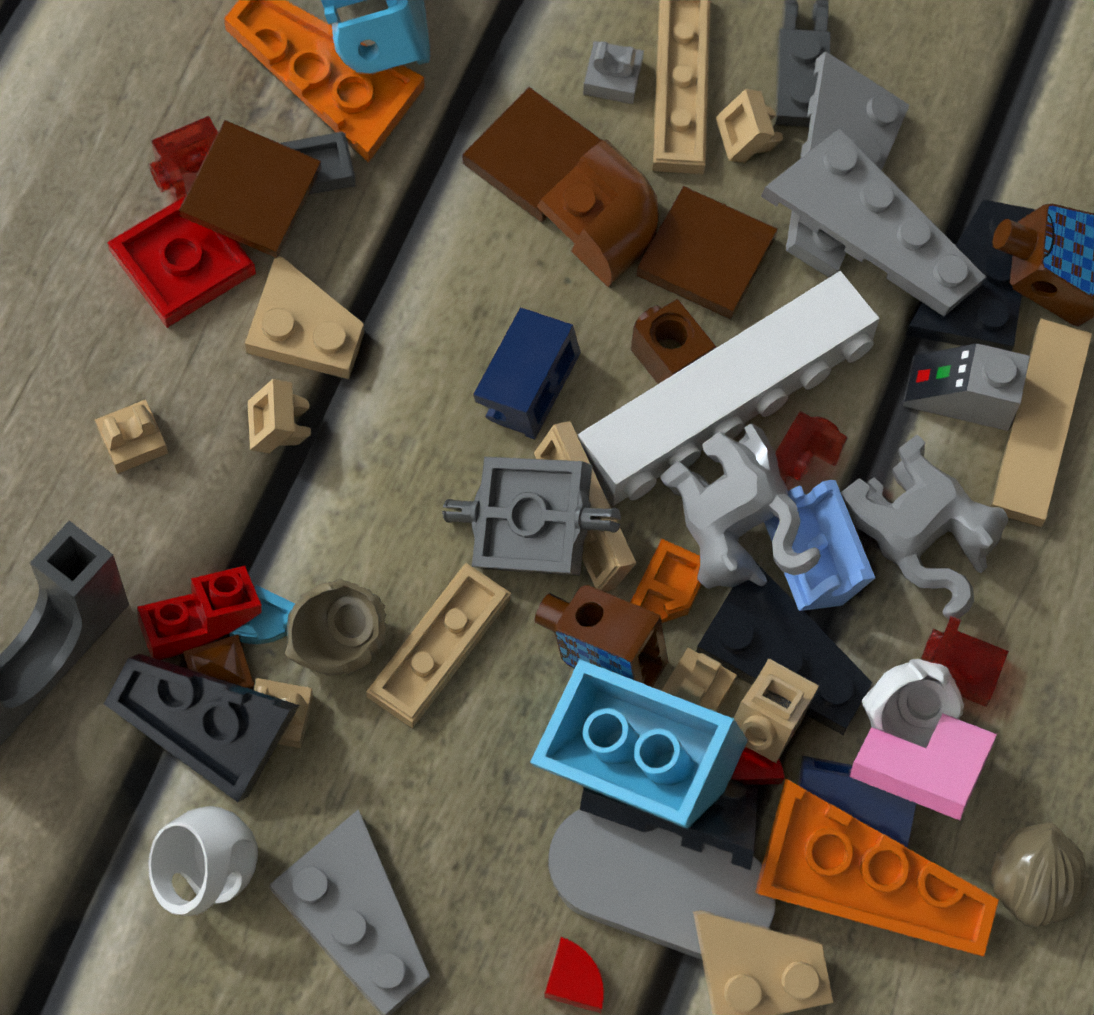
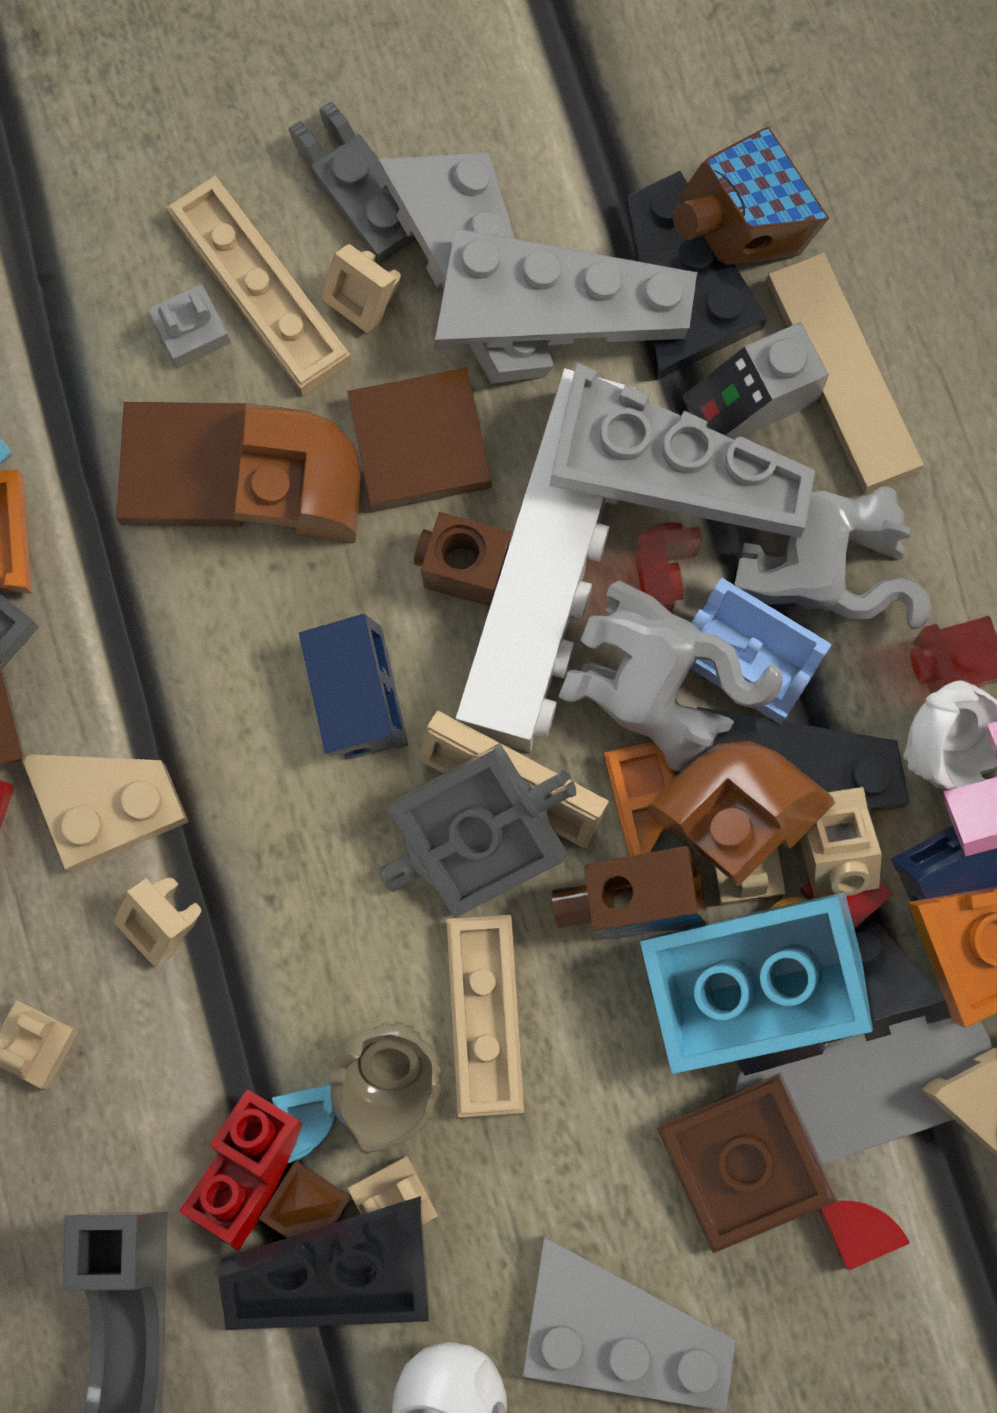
camera: 30 degrees left, 10 degrees up
(534, 868) = (747, 1163): none -> reddish brown tile
(722, 625) = (739, 806): none -> dark orange brick
(850, 364) = (649, 456): none -> light grey wing

